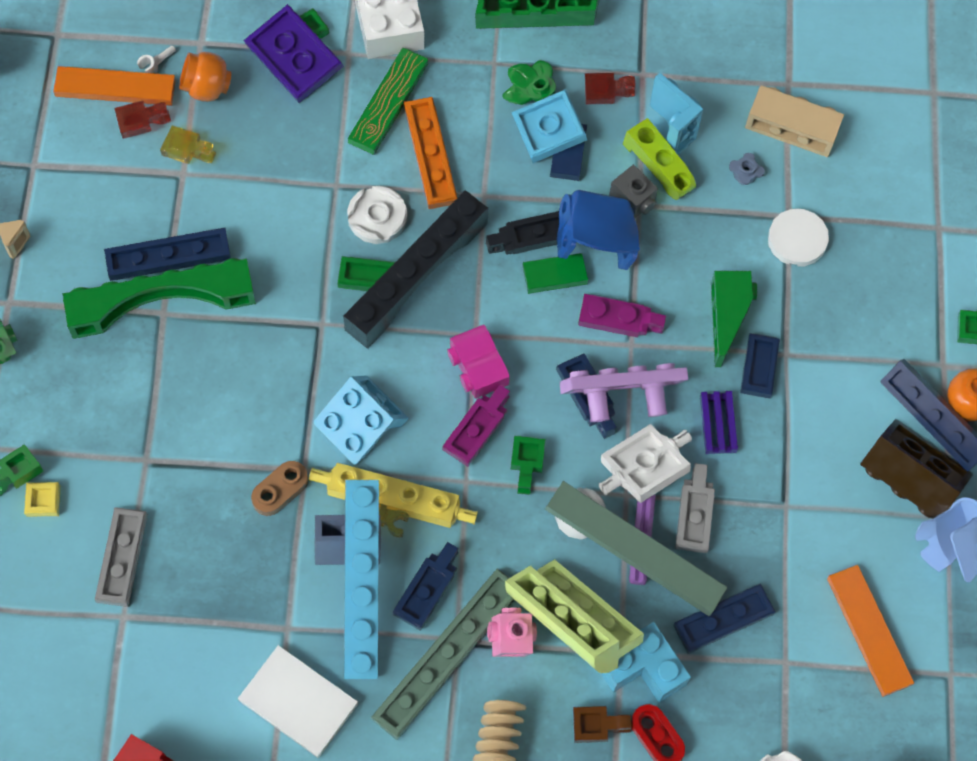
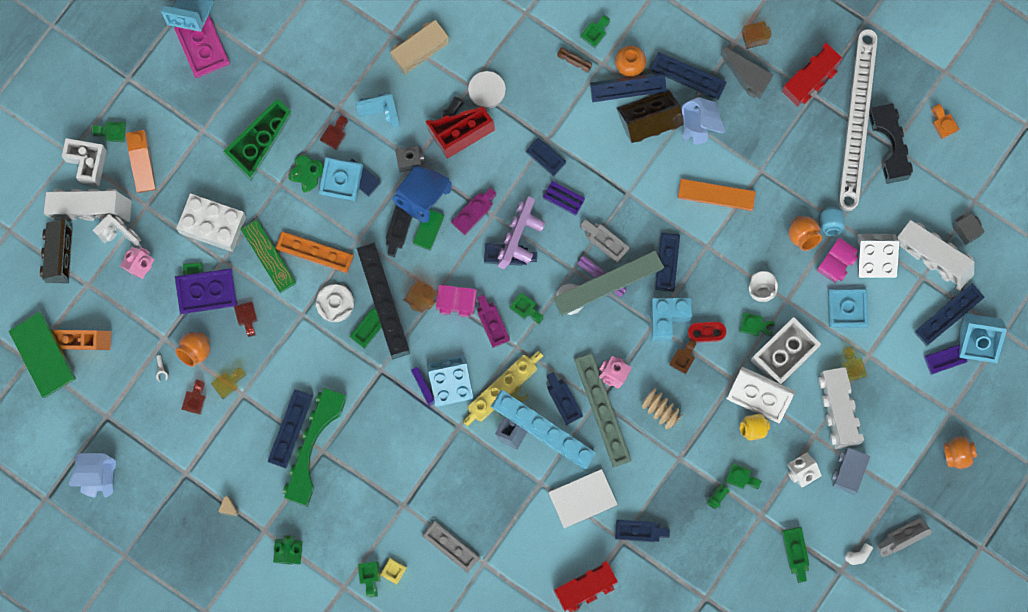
camera: 55 degrees left, 10 degrees up
(114, 85) = (163, 401): orange tile -> none
(282, 489) = (461, 444): medium nougat plate -> none
(289, 118) = (246, 316): none -> clear red plate
(329, 386) = (423, 386): none -> dark purple tile
(452, 311) = (420, 297): none -> clear orange brick
(575, 614) = (625, 334): yellowish green brick -> none
(645, 463) = (565, 249): white plate -> none
(660, 158) = (398, 132): lime leg -> none
(717, 232) = (460, 130): none -> red wedge
(730, 300) = (504, 150): green slope -> none
(741, 209) = (453, 107): none -> black pin
(743, 176) = (431, 95): sand blue plate -> none
(921, 324) = (574, 59): none -> reddish brown axle

